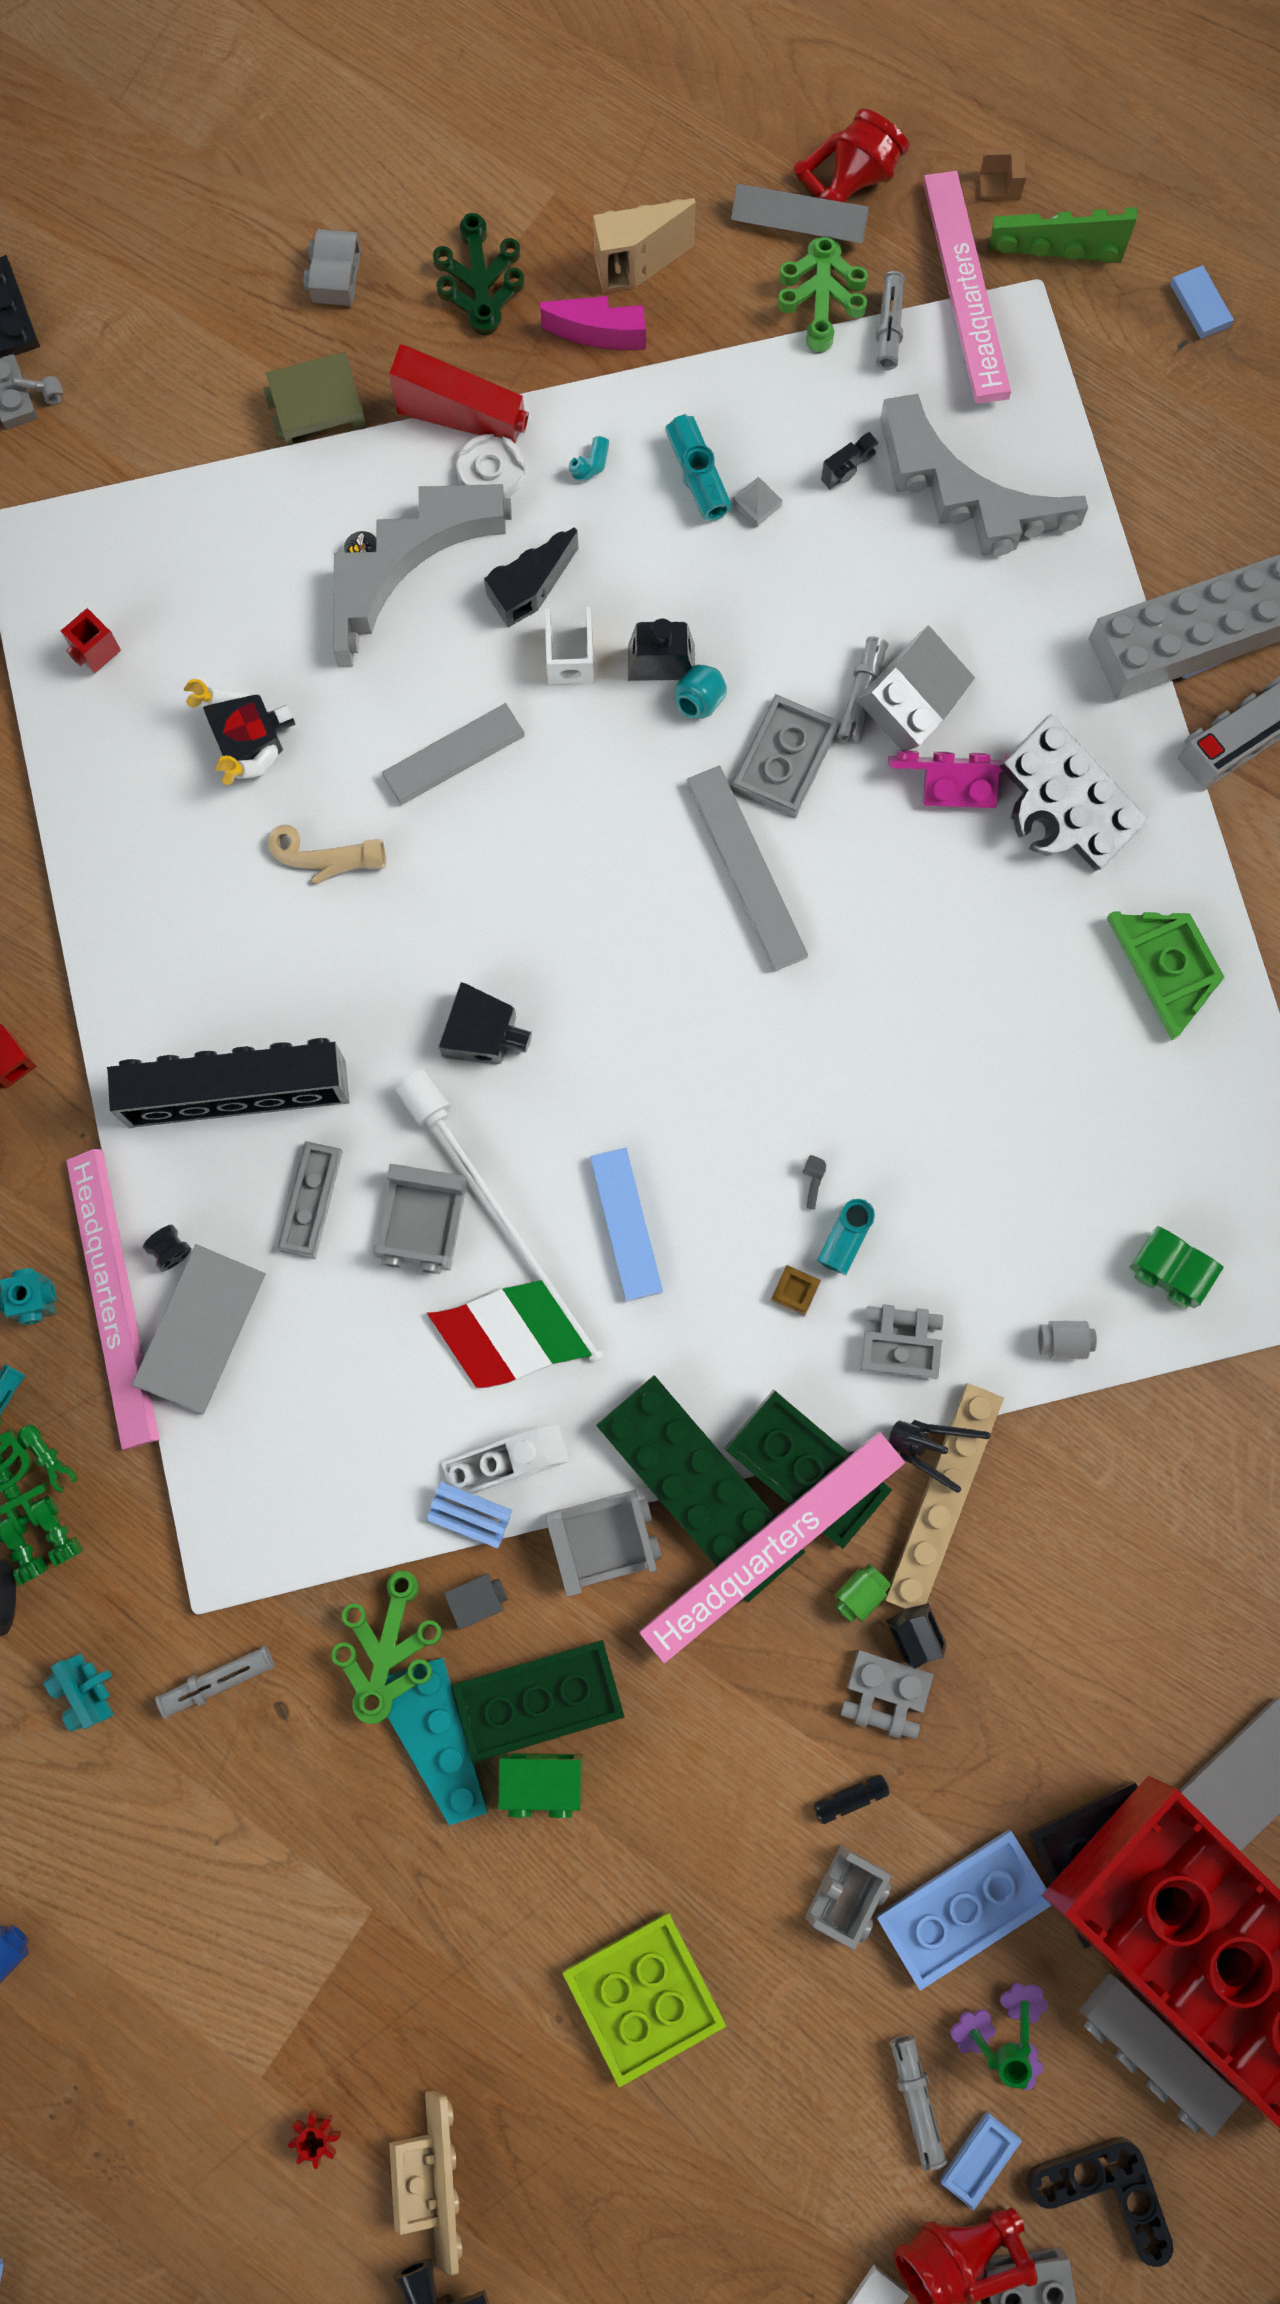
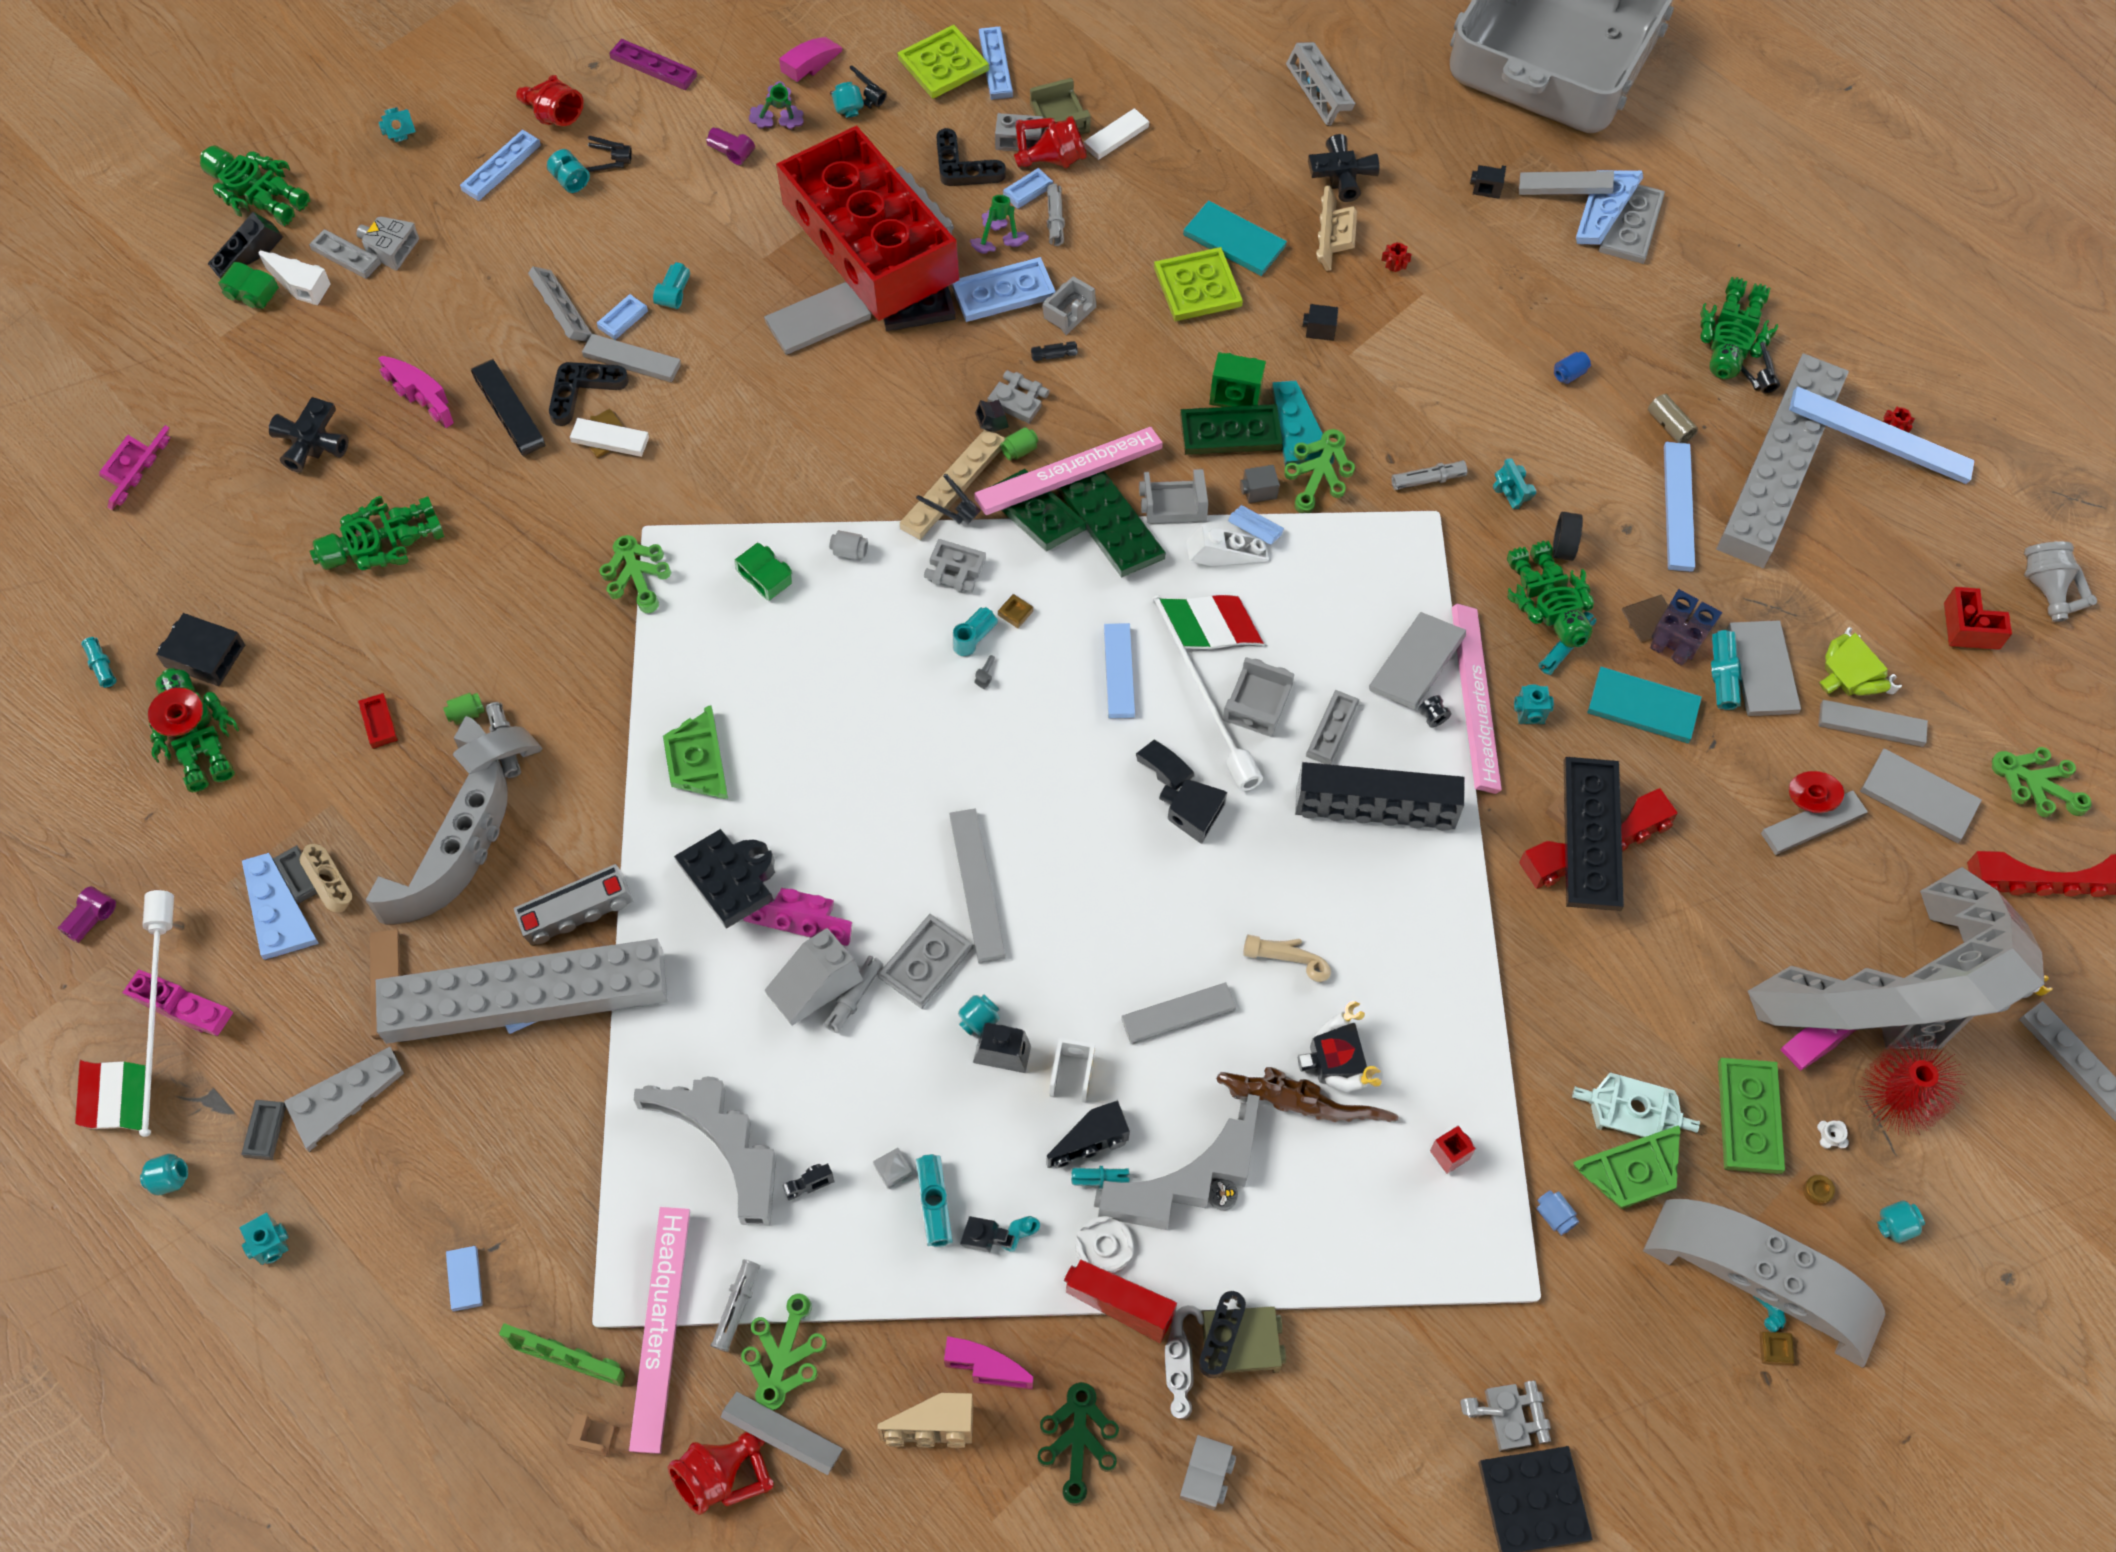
camera: 170 degrees left, 15 degrees down
(292, 672) = (1298, 1097): none -> reddish brown animal
(332, 370) = (1207, 1352): none -> black beam
(379, 360) = (1179, 1362): none -> light grey piece
(425, 1958) = (1321, 322): none -> black brick
(509, 536) = (1097, 1176): none -> teal axle
(533, 1084) = (1167, 765): none -> black slope
(600, 2125) = (1237, 237): none -> teal tile
(634, 444) = (983, 1233): none -> black plate

